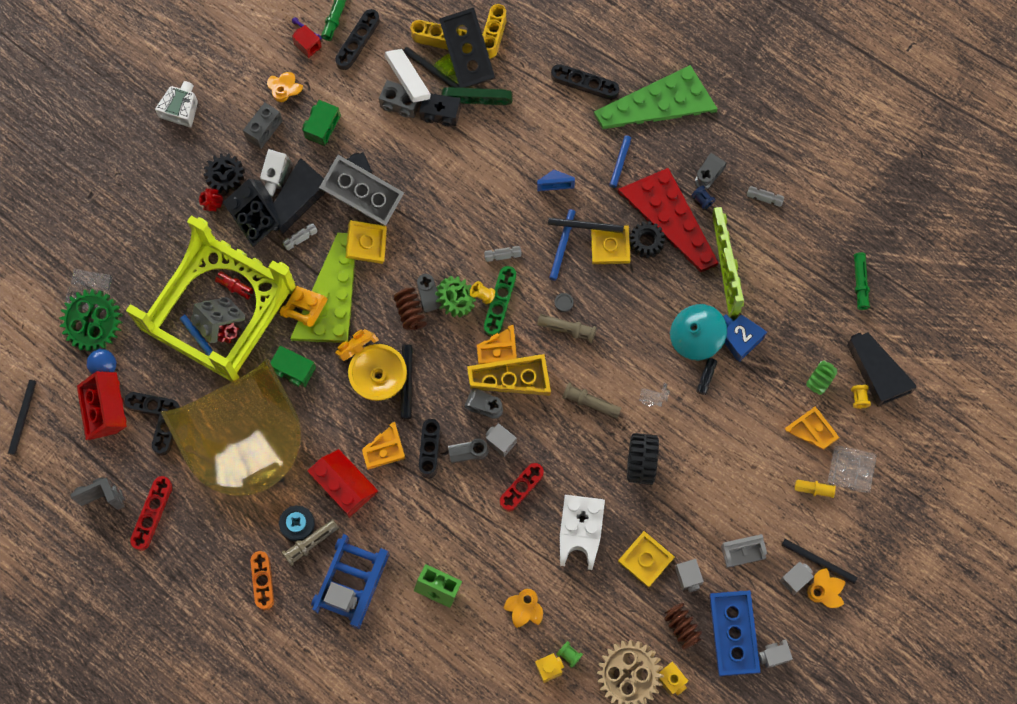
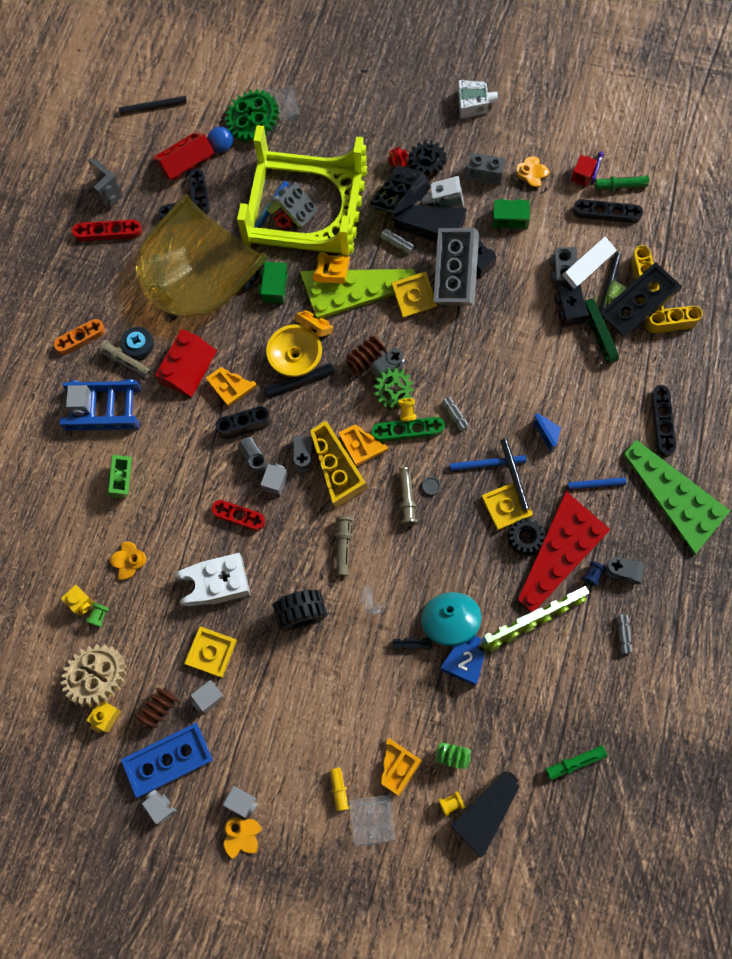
camera: 70 degrees right, 0 degrees up
(234, 285) = (329, 208): red pin -> none
(744, 550) = (250, 740): light grey hinge -> none
(819, 561) = (267, 820): black bar -> none

